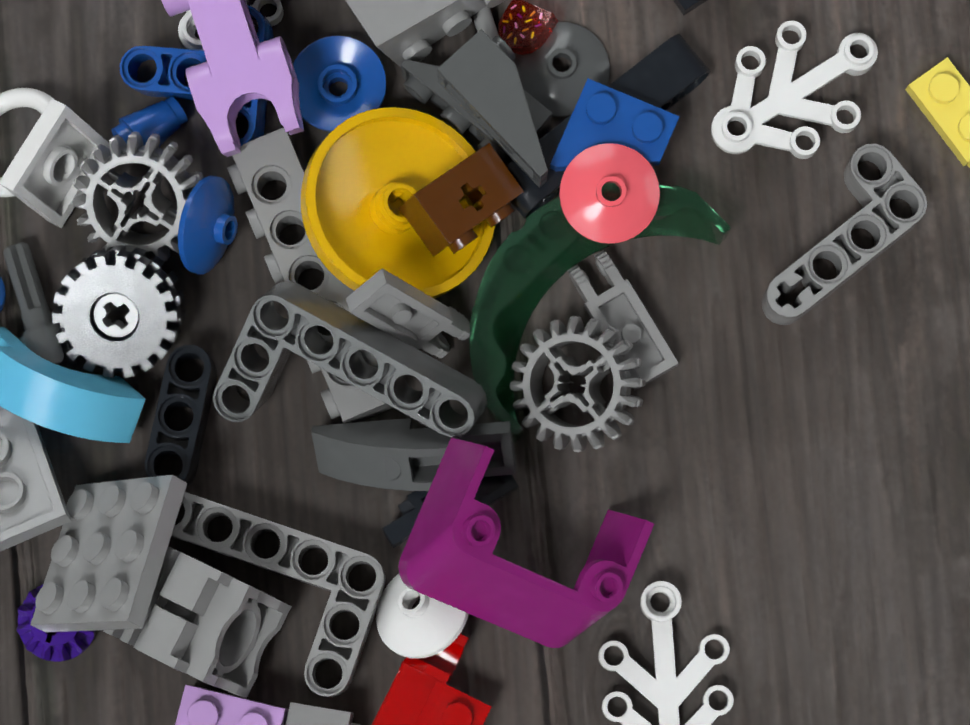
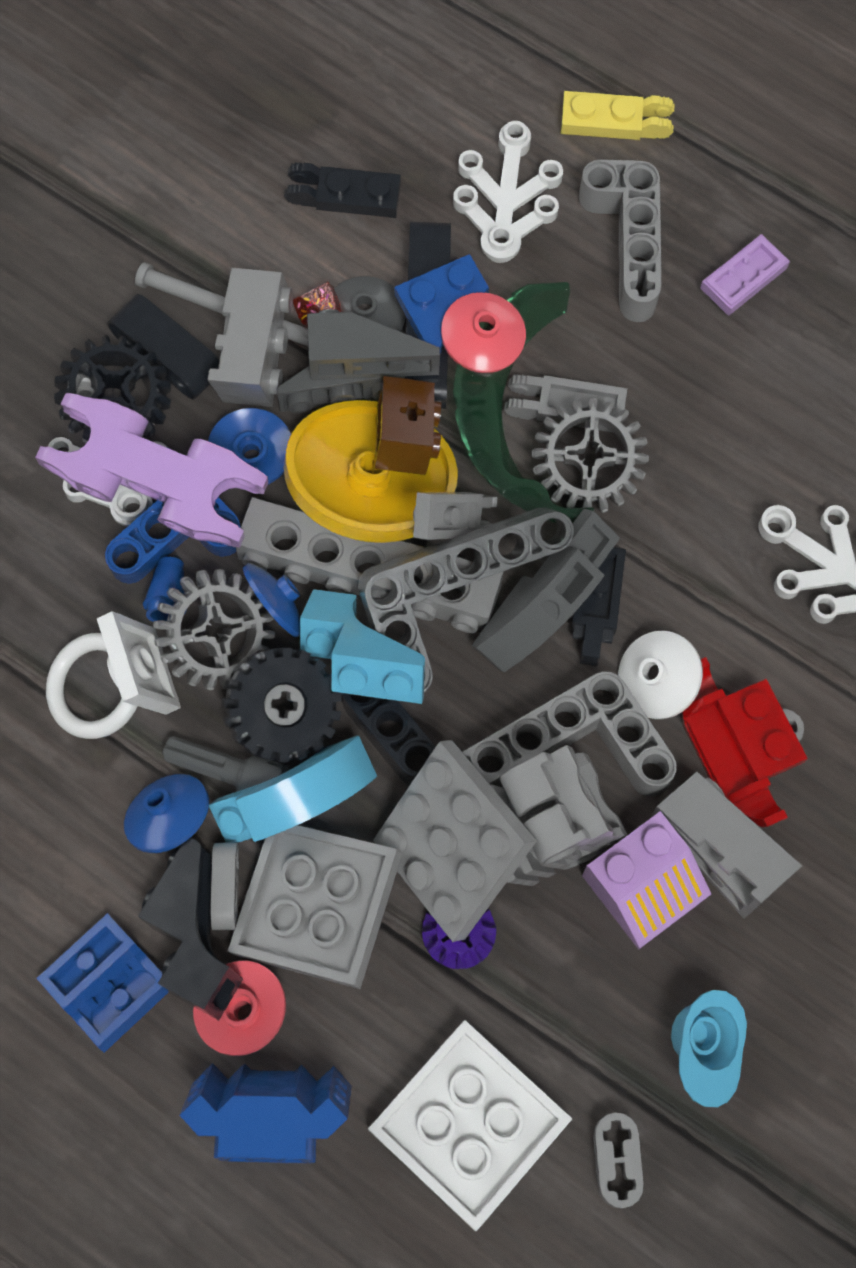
camera: 55 degrees left, 10 degrees down
(203, 346) = (361, 657): none -> medium azure arch
(454, 559) = (666, 606): magenta windscreen -> none
(896, 376) = (744, 274): none -> lavender plate

